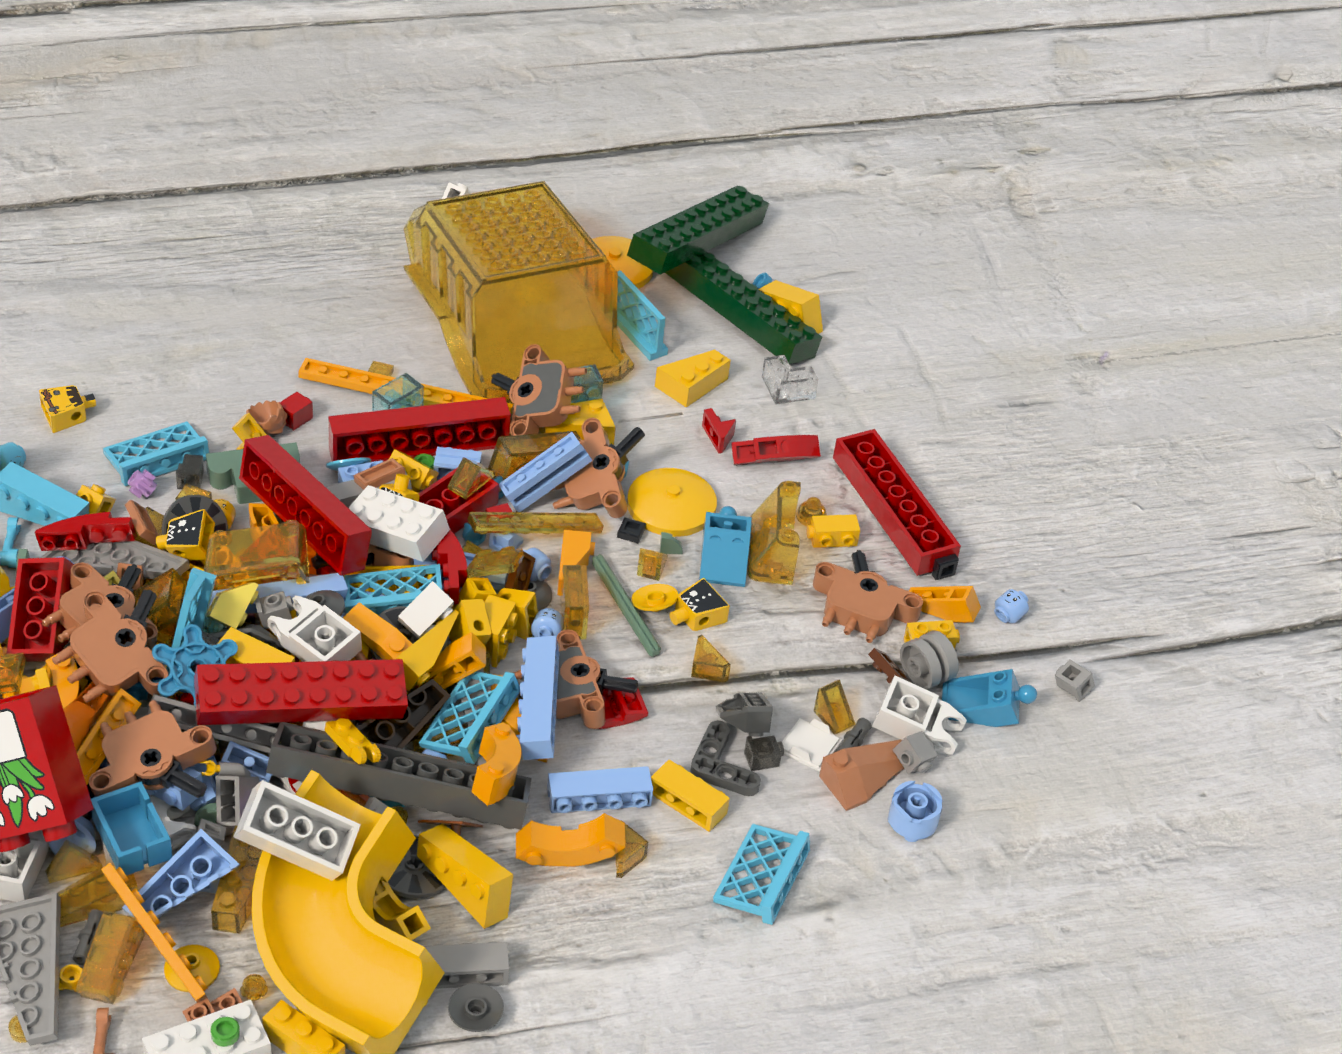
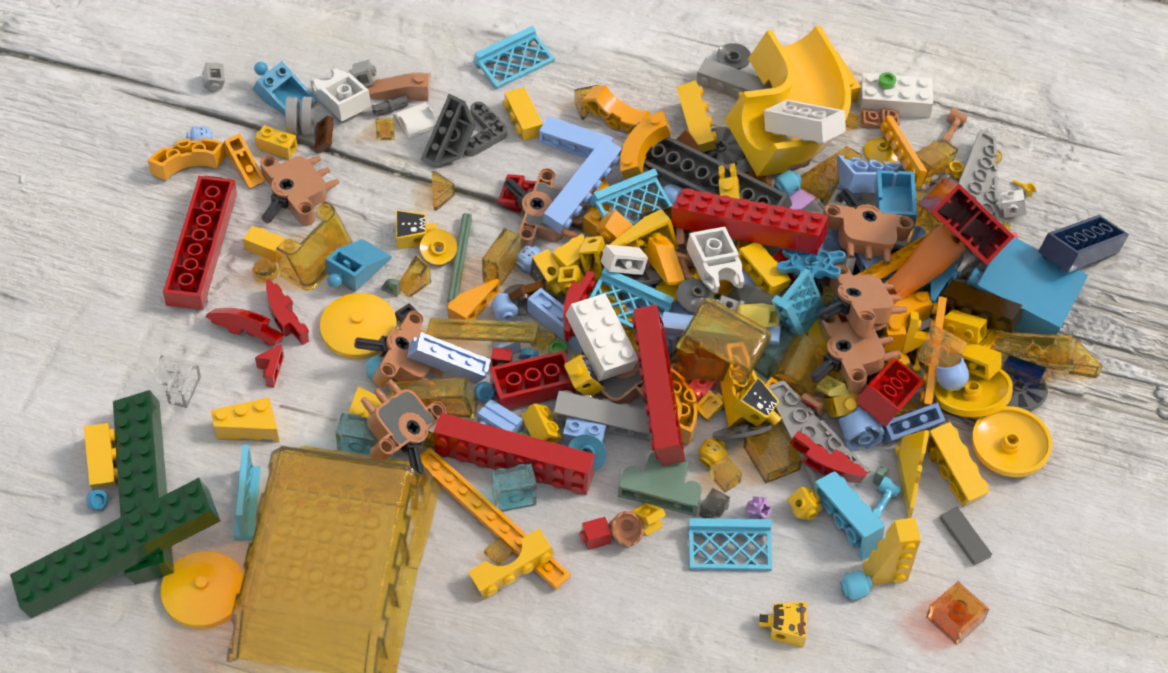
camera: 145 degrees left, 10 degrees up
(142, 521) = (782, 446): nougat tile -> none
(368, 342) = (534, 551): none -> yellow arch
(379, 474) = (578, 407): nougat tile -> none
(469, 478) = (508, 373): clear yellow slope -> none
(496, 562) = (548, 280): clear yellow plate -> none
(747, 472) = (283, 314): none -> red slope
(915, 810) = (396, 44): light blue brick -> none
(1007, 575) = (186, 154): none -> light orange brick

